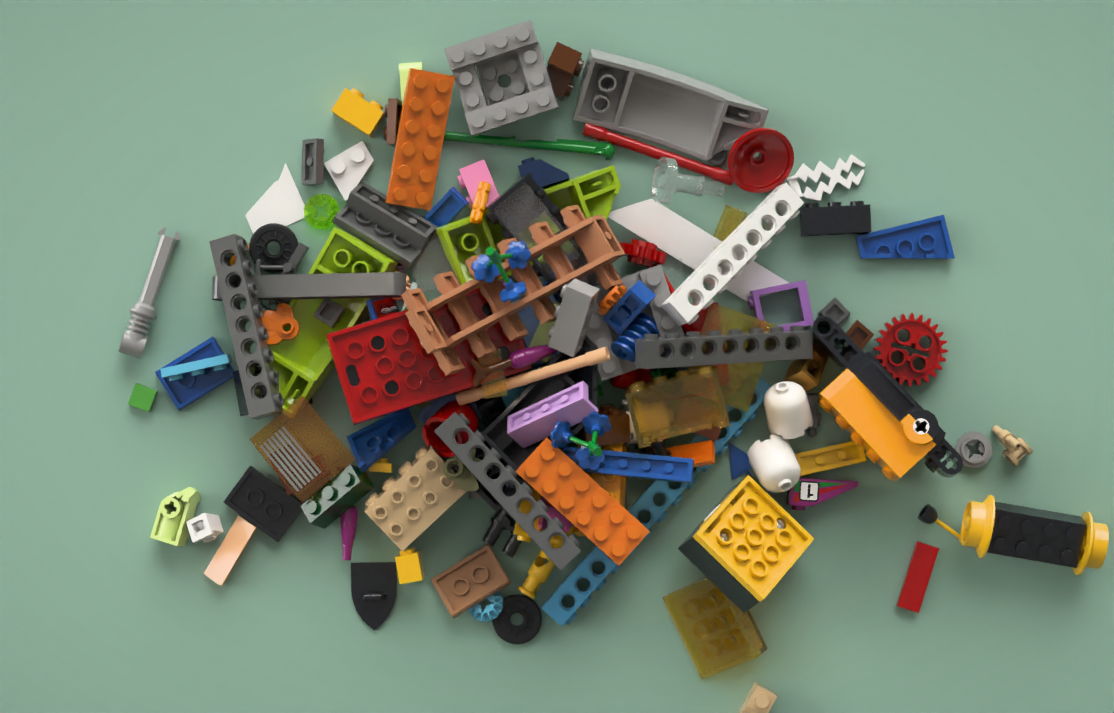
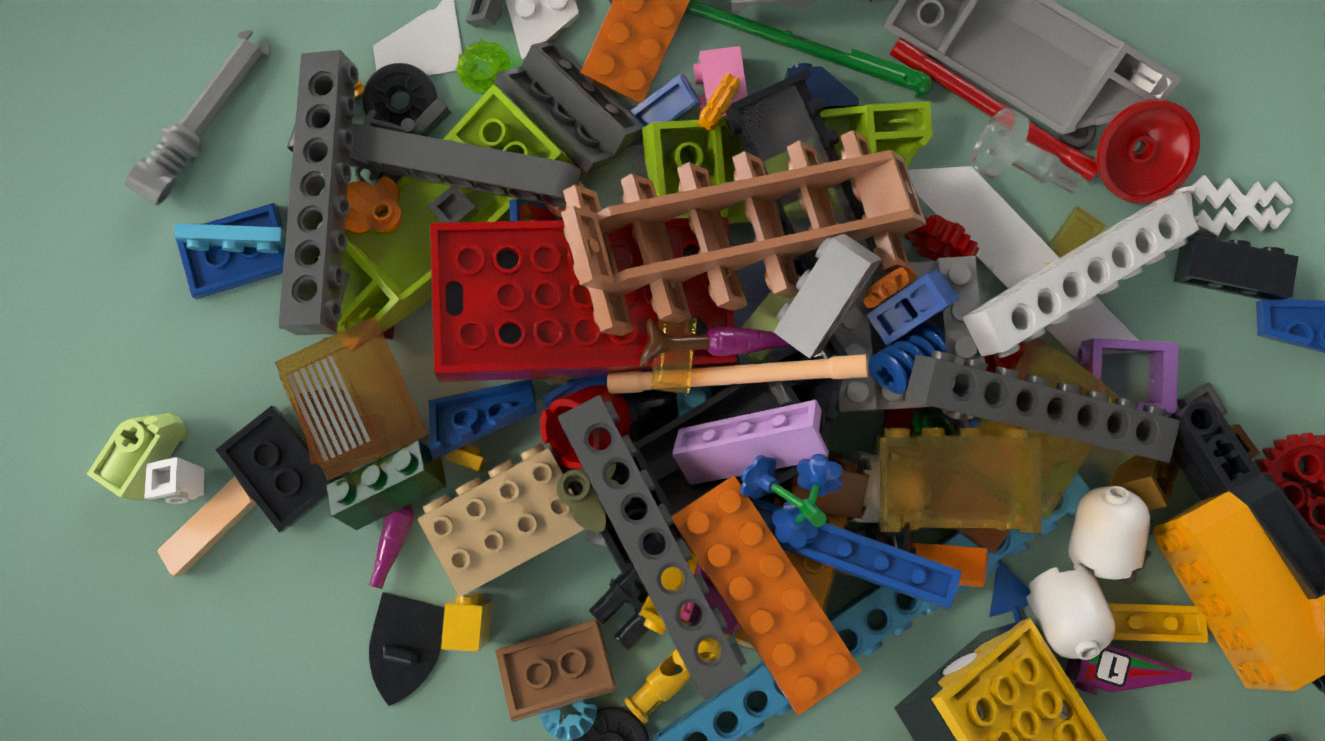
camera: 15 degrees right, 5 degrees down
(142, 397) = (146, 265): bright green tile -> none
(491, 267) = (711, 182): blue plant -> none
(624, 380) = (867, 422): red cone -> none

